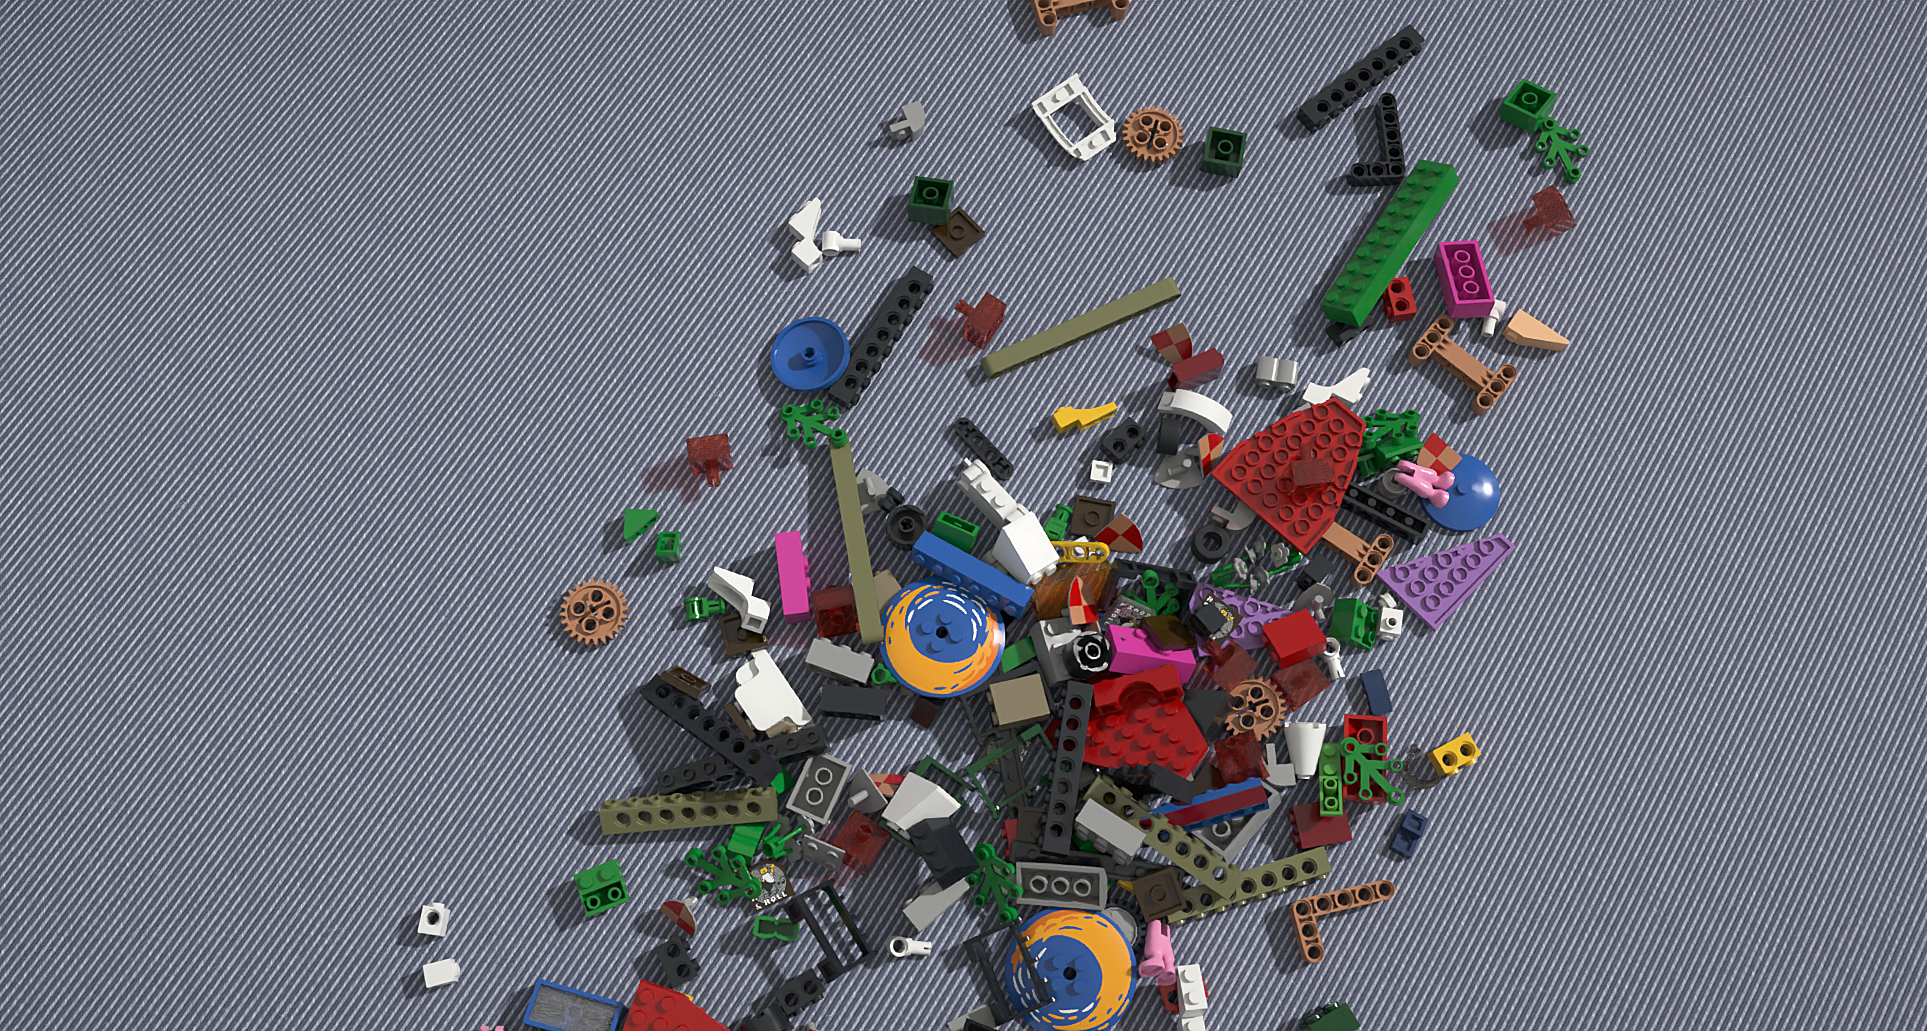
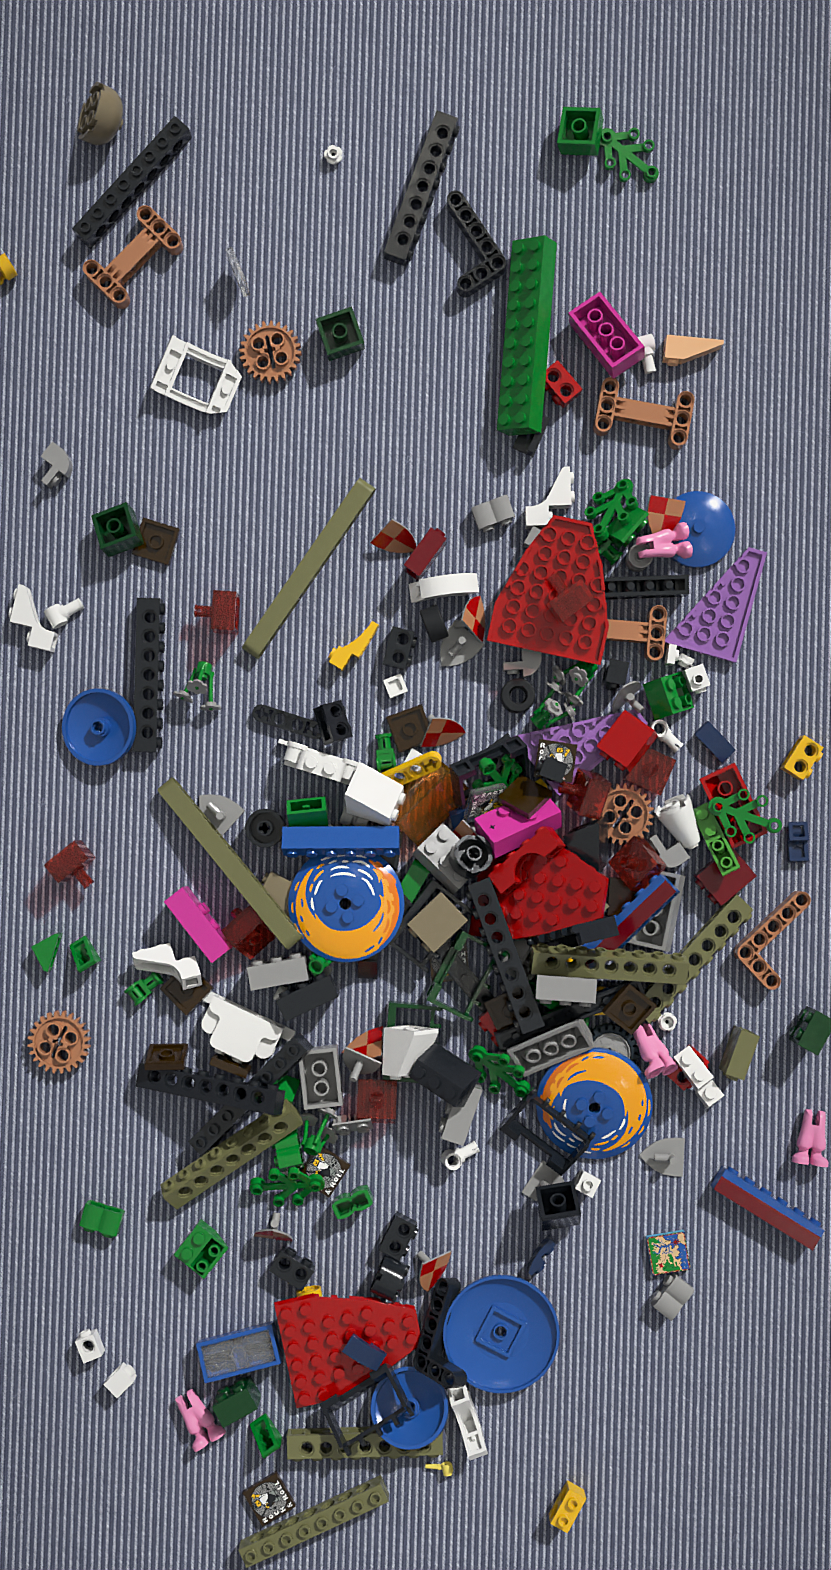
camera: 30 degrees left, 15 degrees up
(525, 802) = (102, 1218): none -> green brick
(781, 728) = (266, 1049): dark tan arm -> none
(792, 414) = (135, 785): green plant -> none
(831, 966) = (410, 1209): black hinge -> none
(890, 500) = (239, 812): black wheel -> none
(922, 367) = (194, 685): none -> plant
(1024, 470) = (328, 723): none -> black brick
(1080, 604) = (442, 815): shield -> none
(1162, 57) = (237, 271): none -> clear tile
(1193, 936) = (672, 1021): none -> white plate
(1243, 1005) = (738, 1053): none -> olive brick
(1298, 18) = (333, 159): none -> white plate
(1376, 588) = (671, 654): none -> white plate
(1411, 781) = (781, 798): clear smoke helmet -> none
(1551, 211) = (650, 224): clear red brick -> none

